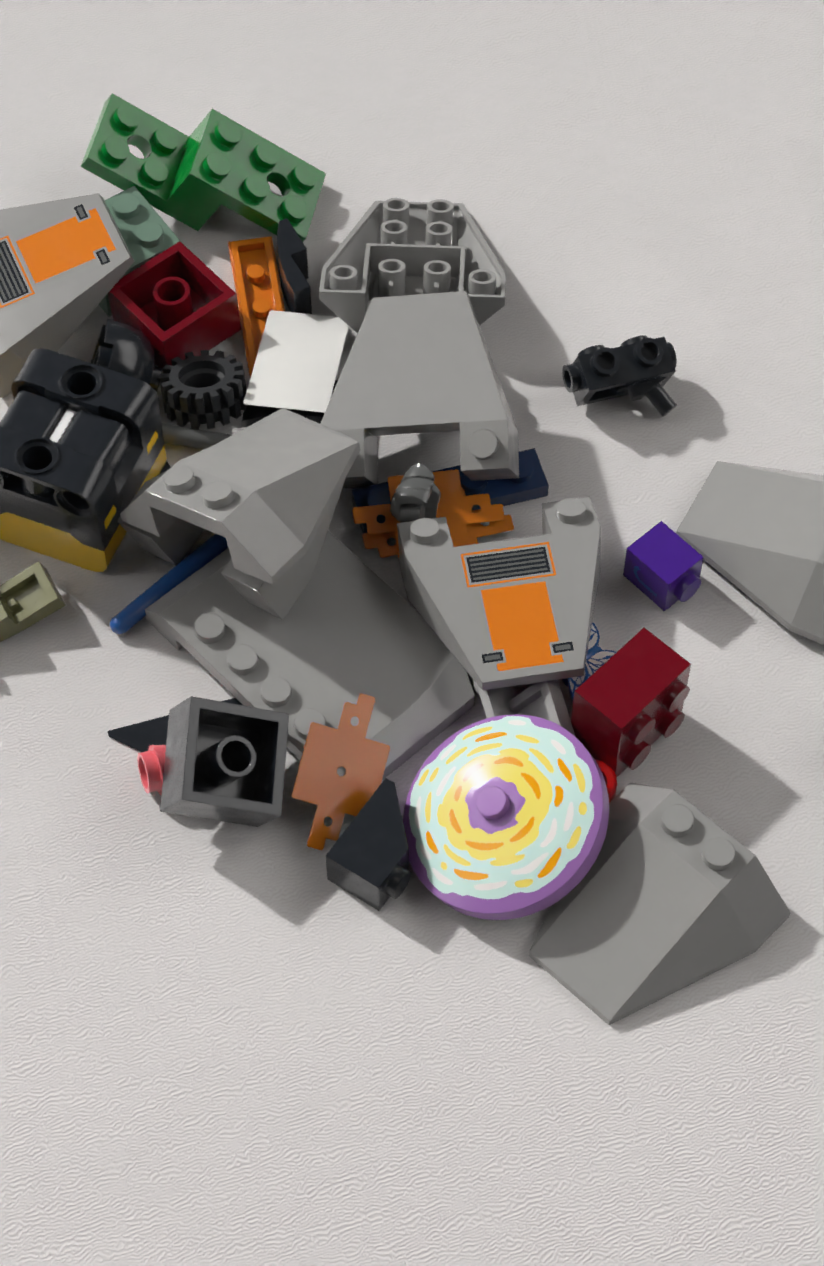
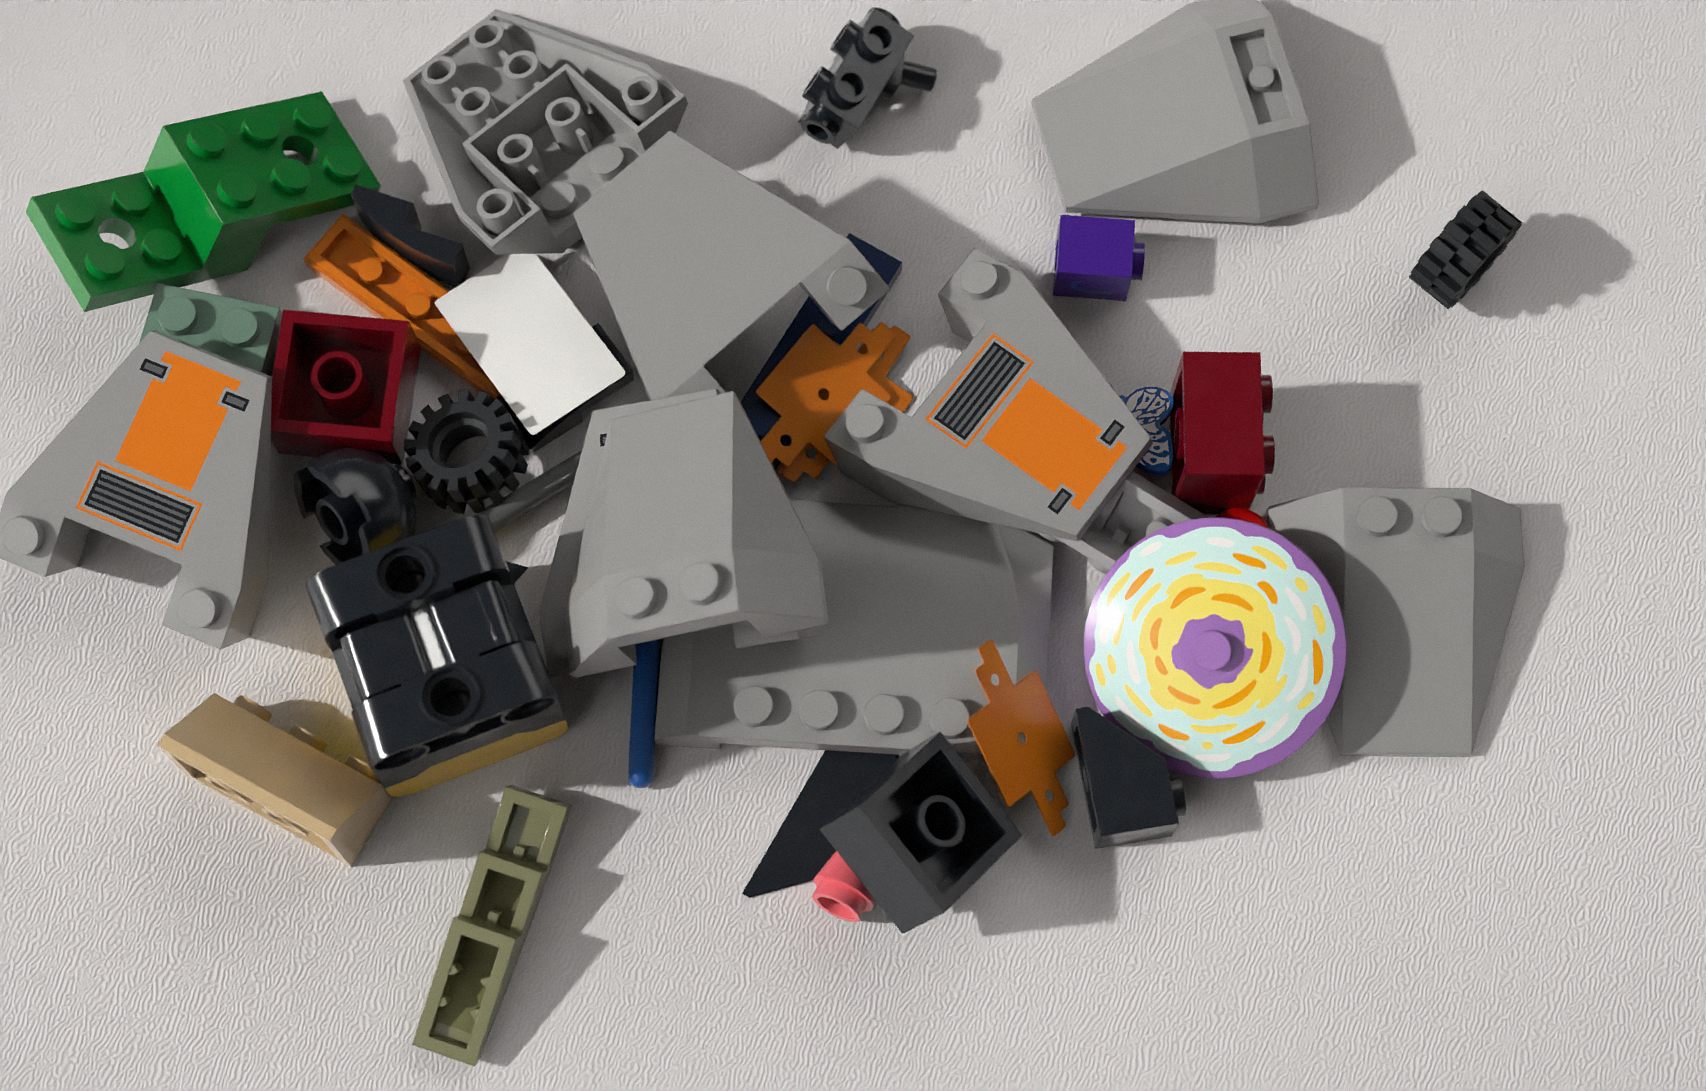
camera: 45 degrees left, 15 degrees up
(416, 495) = (810, 392): dark grey arm -> none

